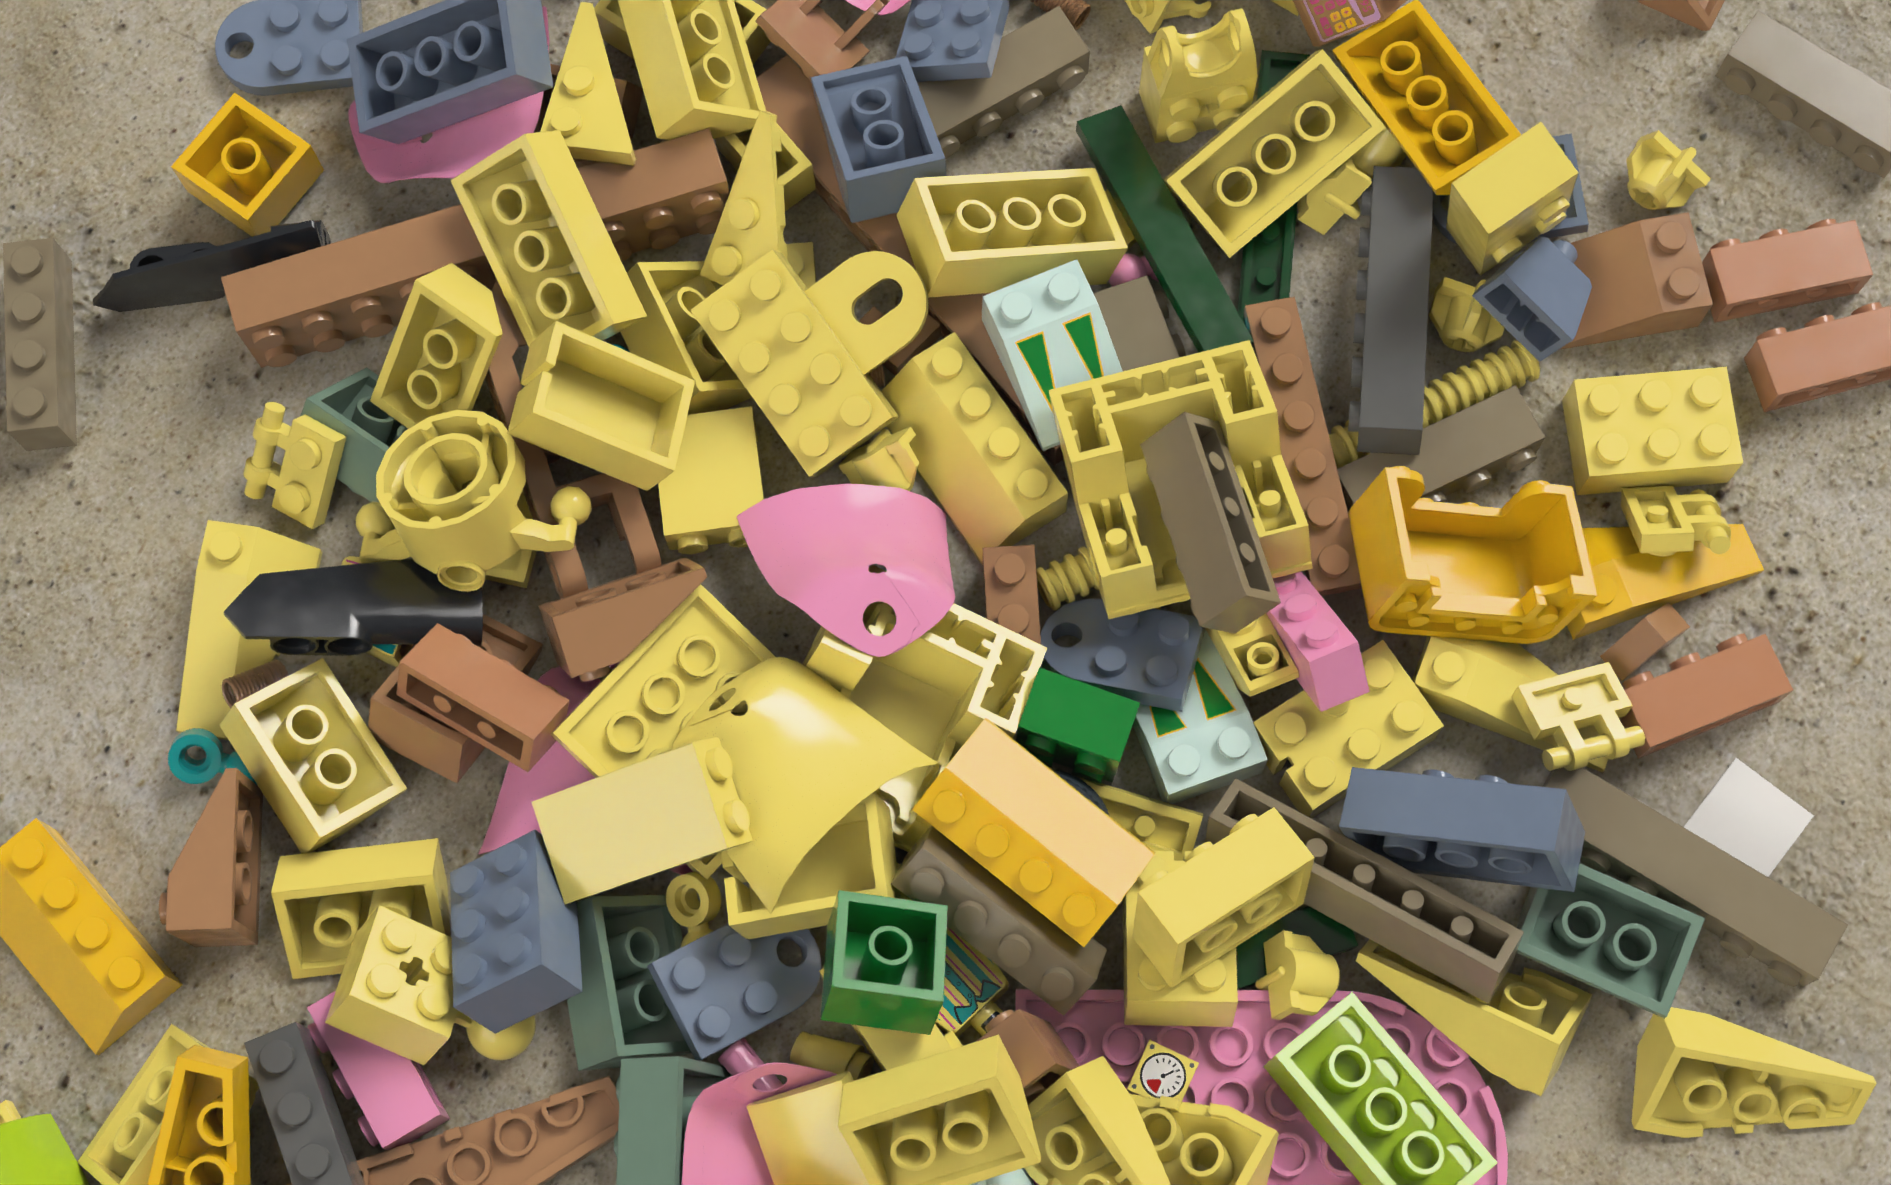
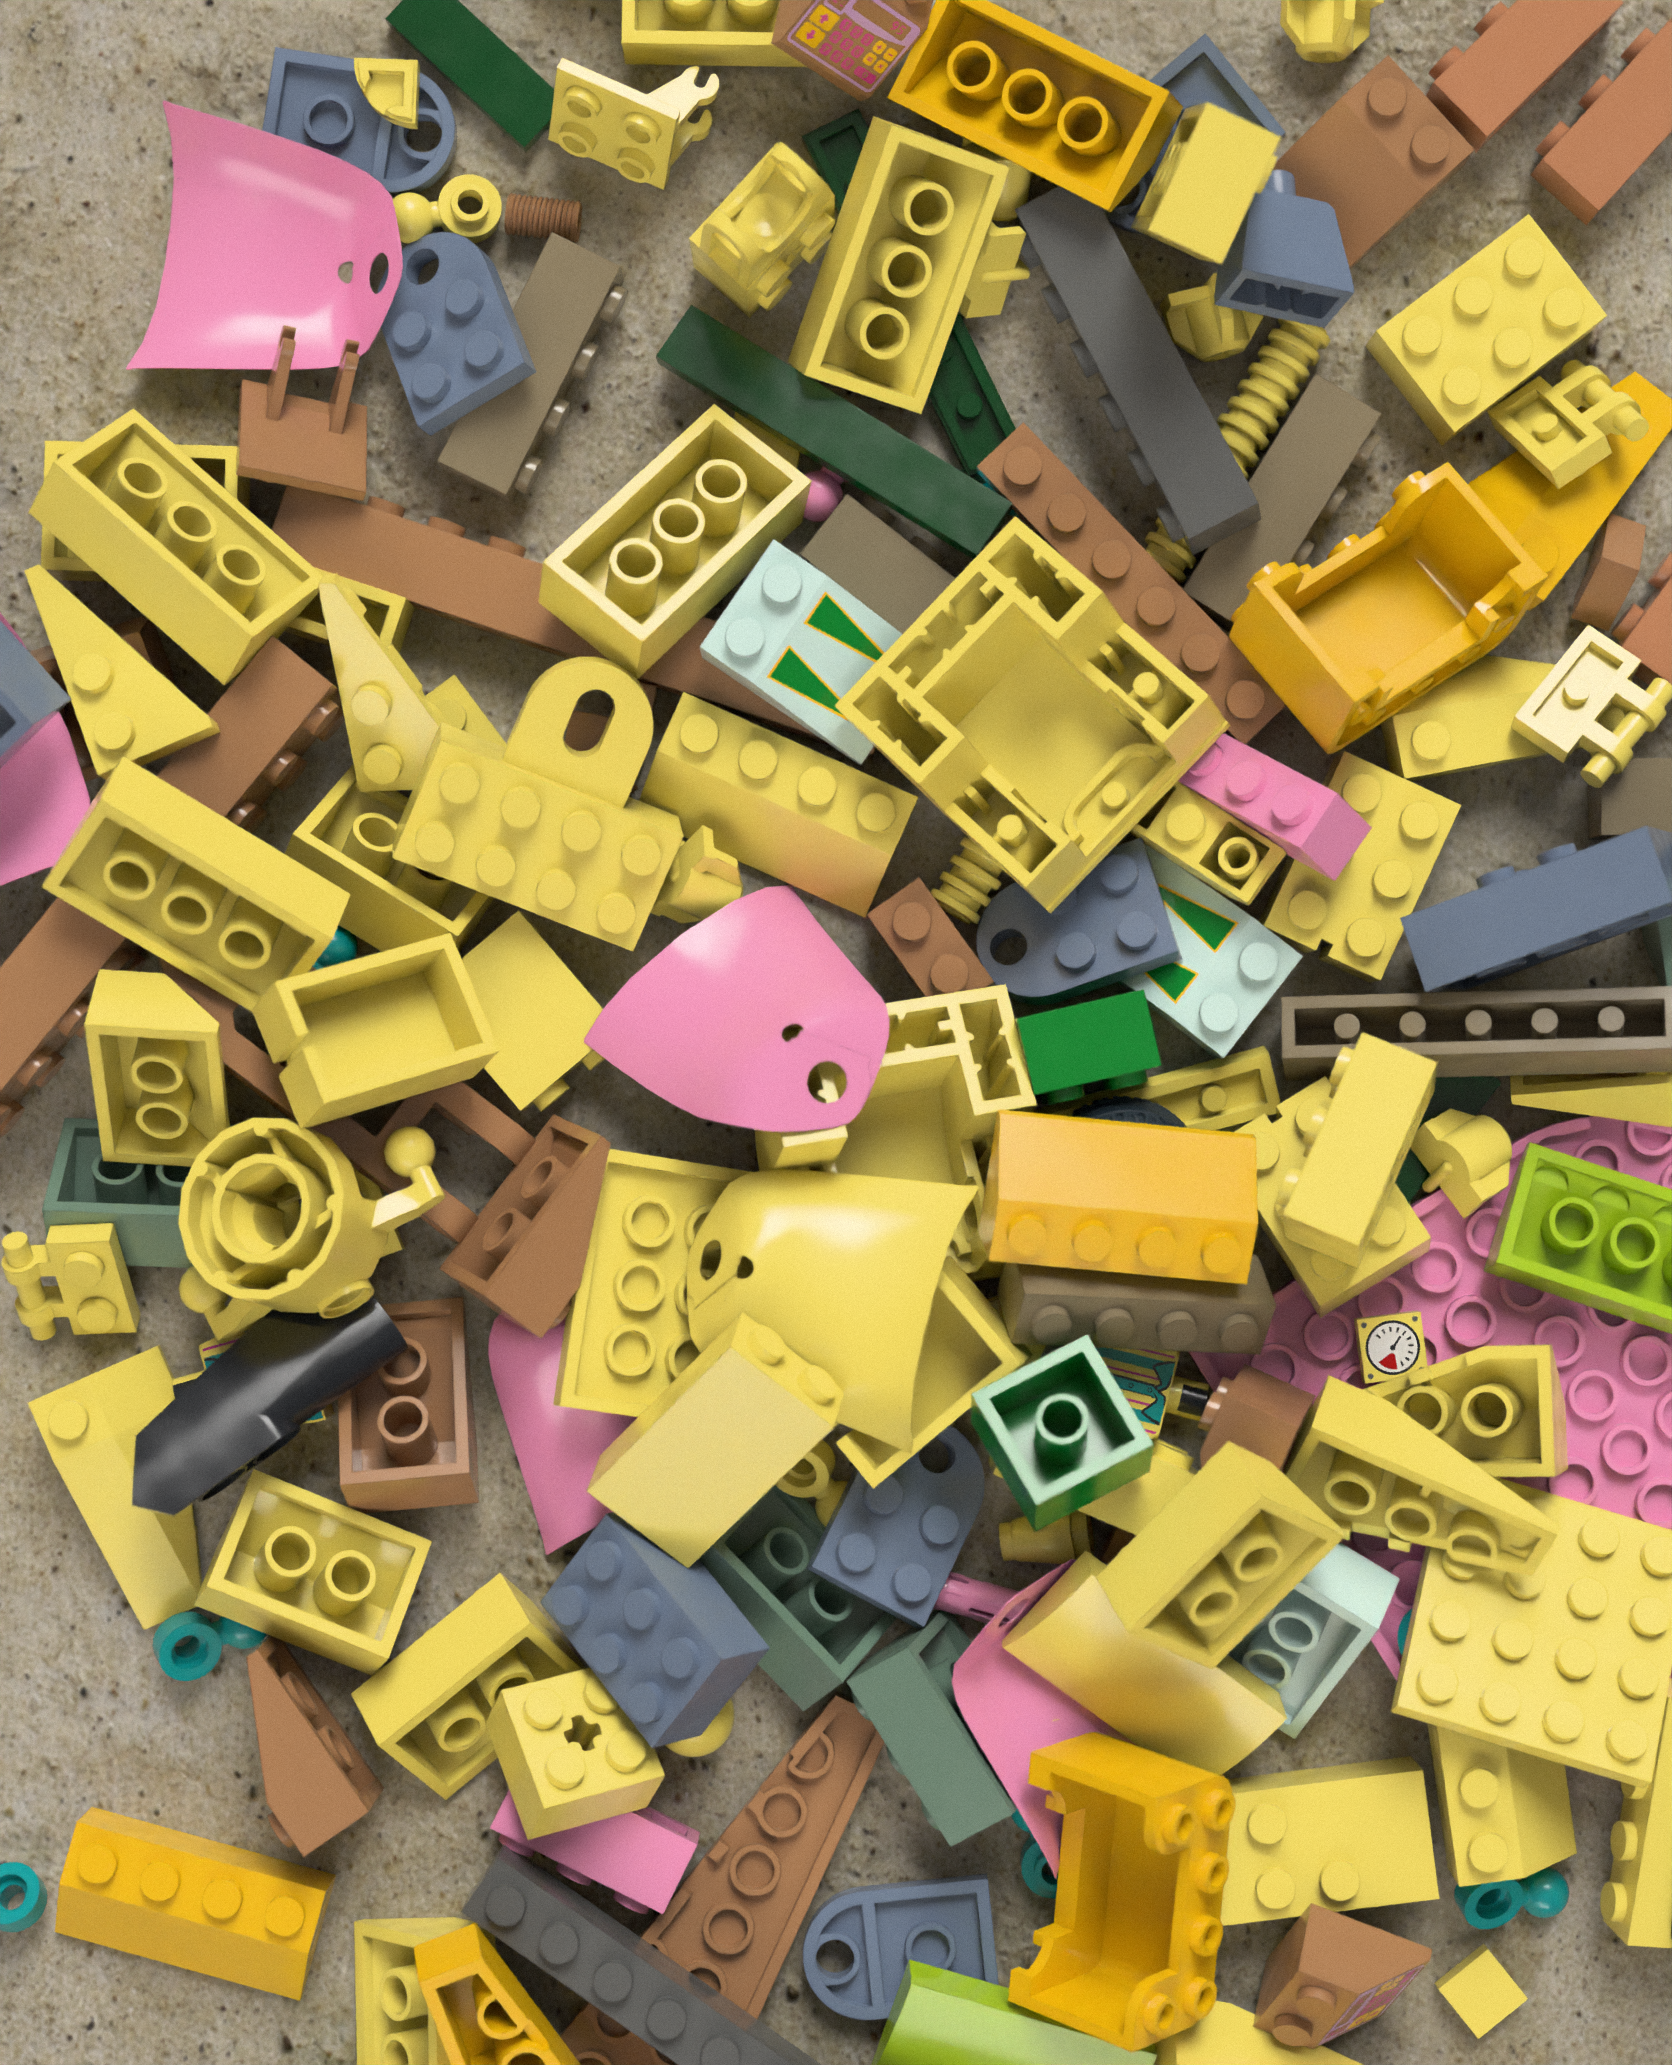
camera: 40 degrees left, 15 degrees up
(240, 689) = (194, 1536): medium nougat piece -> none
(481, 696) = (455, 1409): nougat brick -> none
(877, 135) = (459, 521): sand blue slope -> none
(1209, 524) = (1102, 755): dark tan brick -> none

